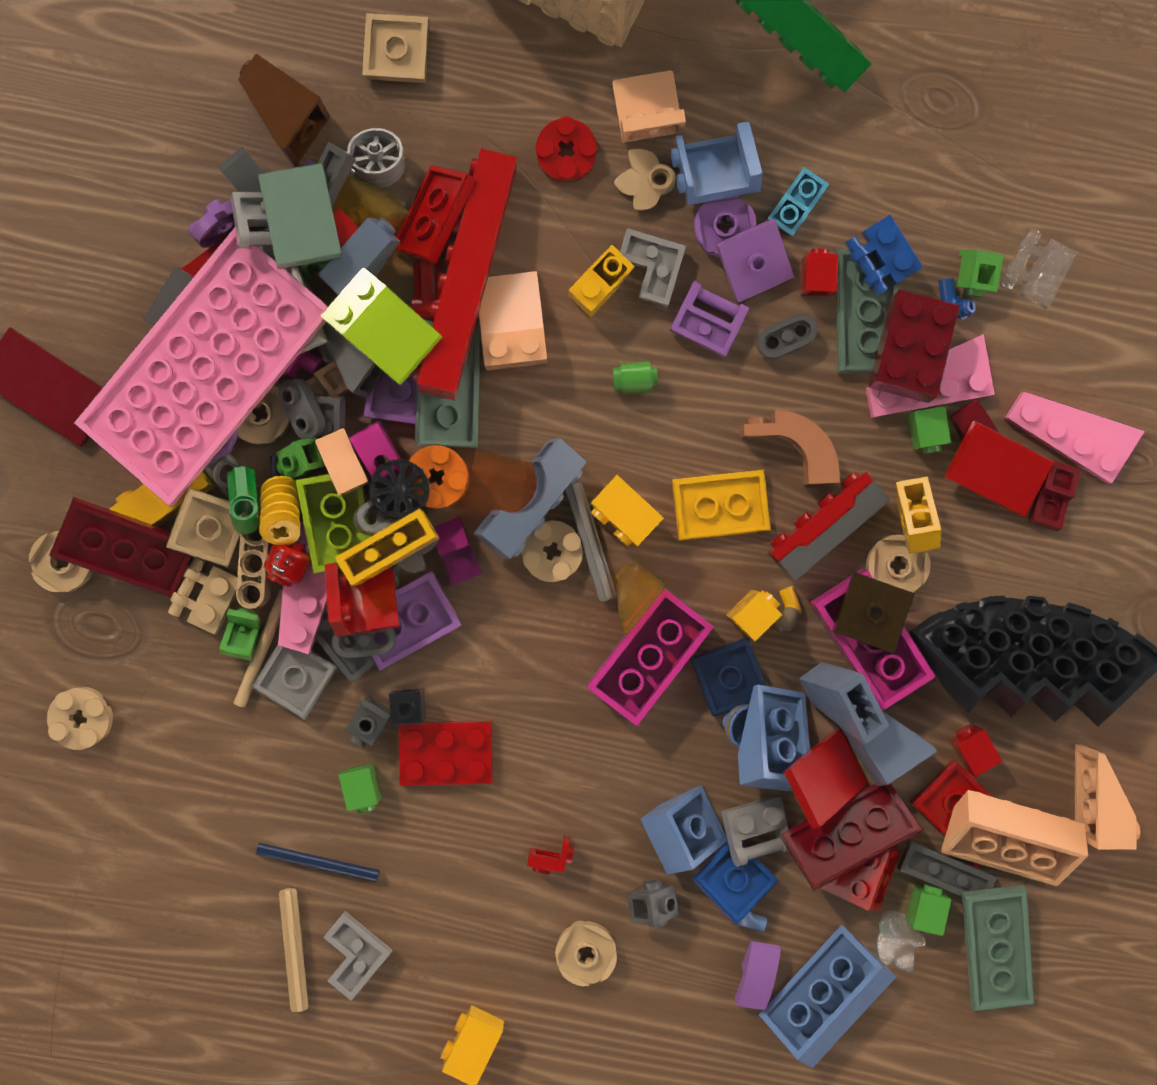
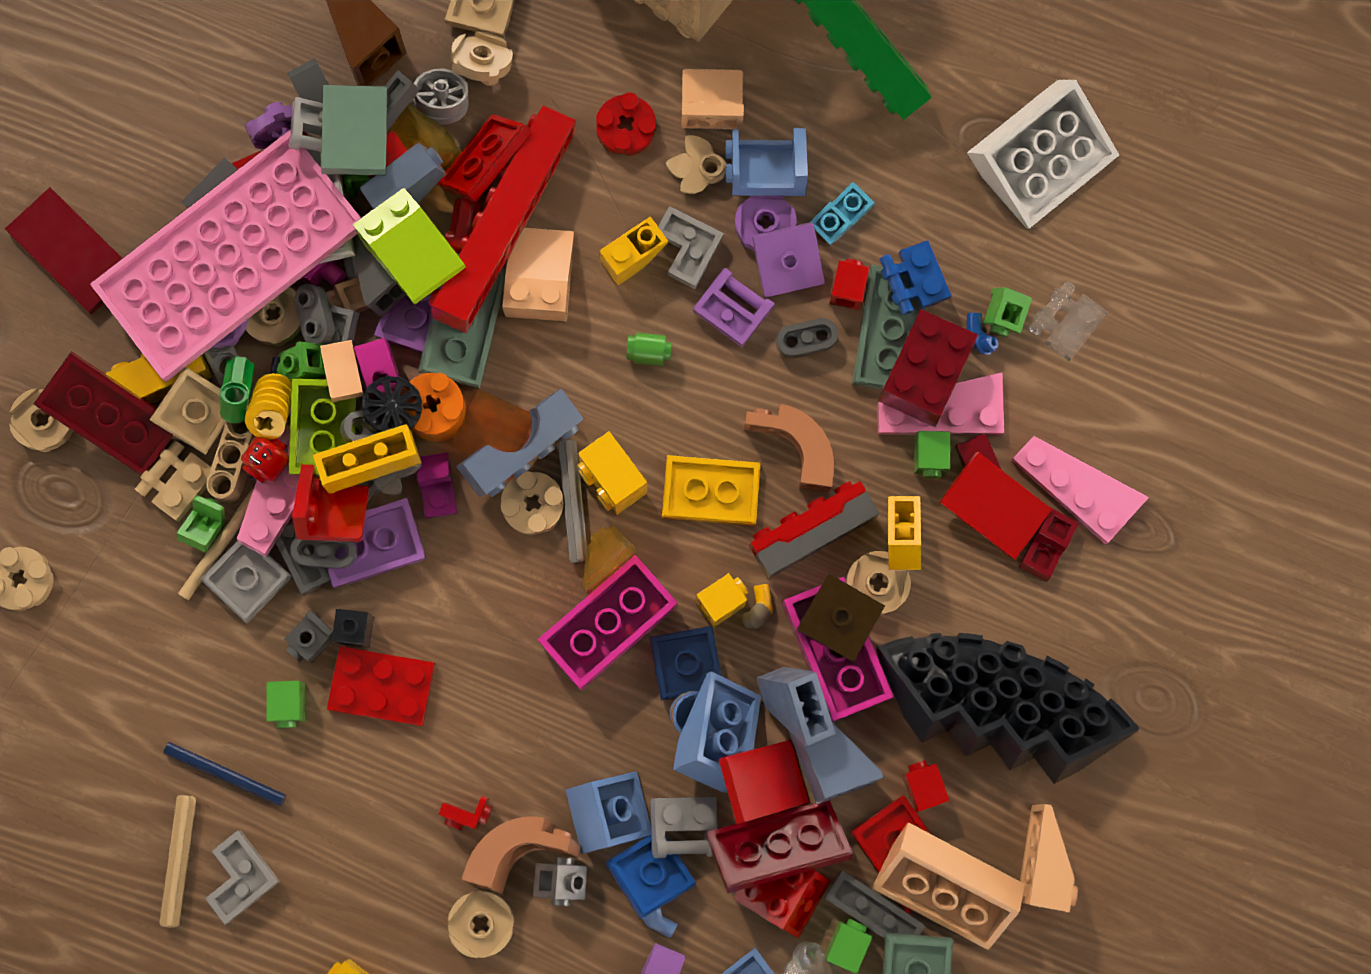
camera: 10 degrees right, 10 degrees down
(407, 122) = (467, 59): none -> tan plate
(587, 889) = (505, 844): none -> nougat arch
(990, 97) = (1044, 152): none -> white slope

